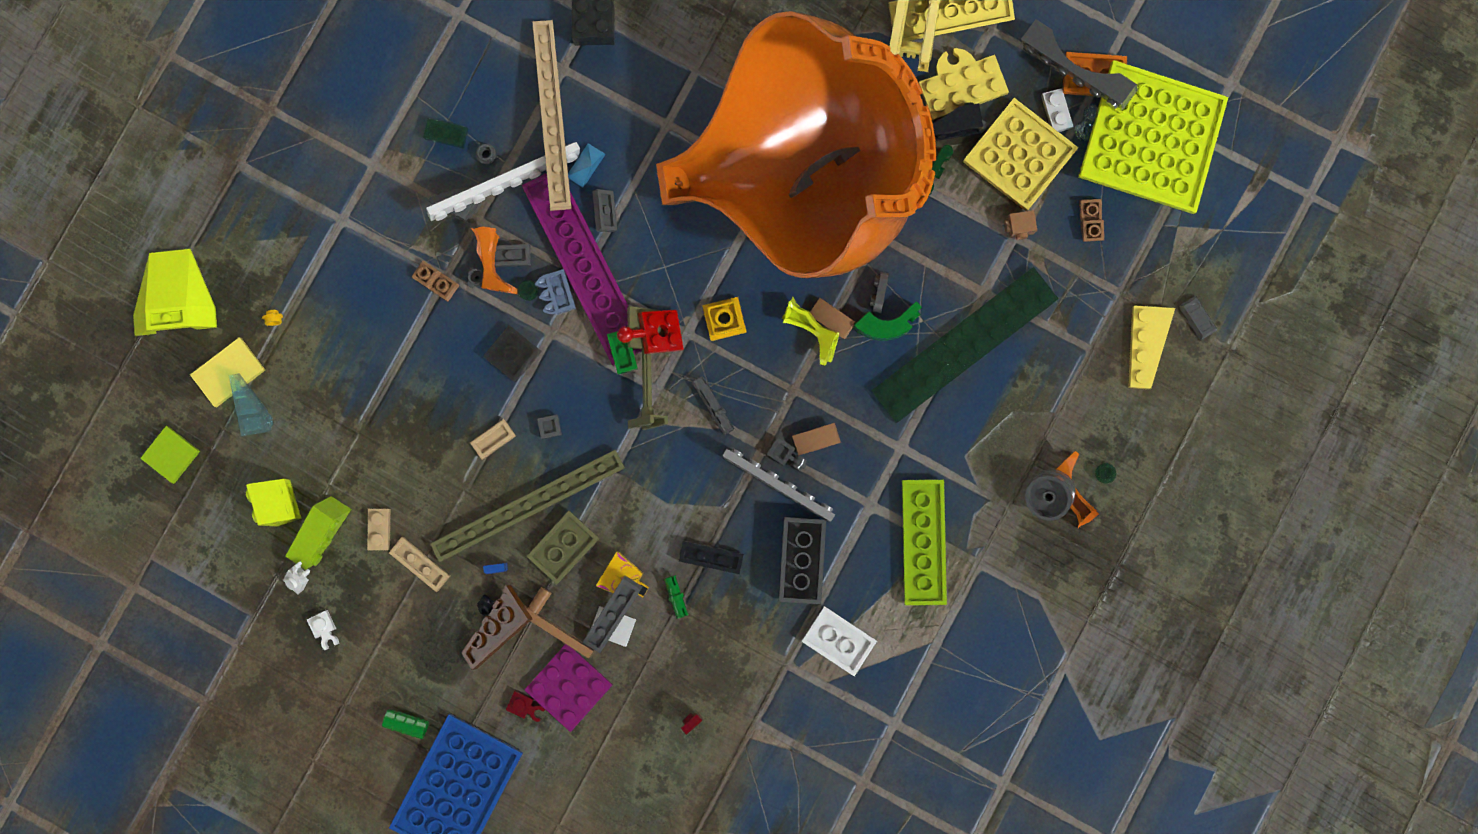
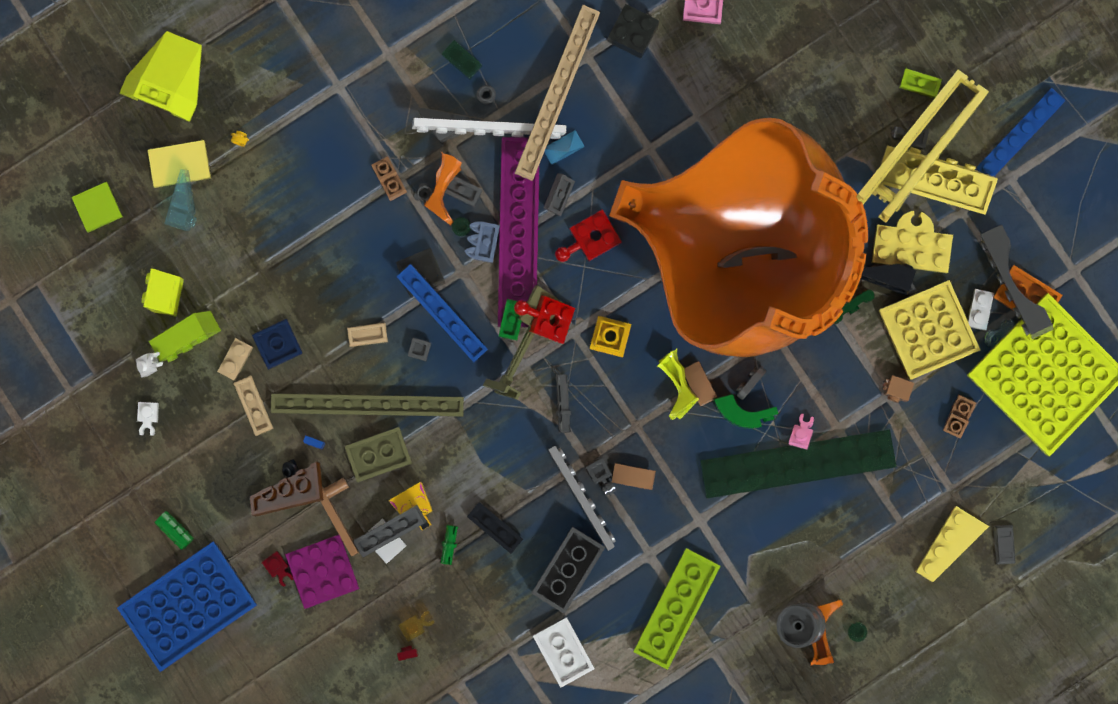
camera: 20 degrees right, 0 degrees up
(411, 493) = (277, 344): none -> dark blue tile
(552, 380) = (442, 313): none -> blue plate
(661, 245) = (590, 248): none -> red plate
(683, 693) = (413, 627): none -> clear yellow plate
(953, 314) = (801, 434): none -> bright pink plate

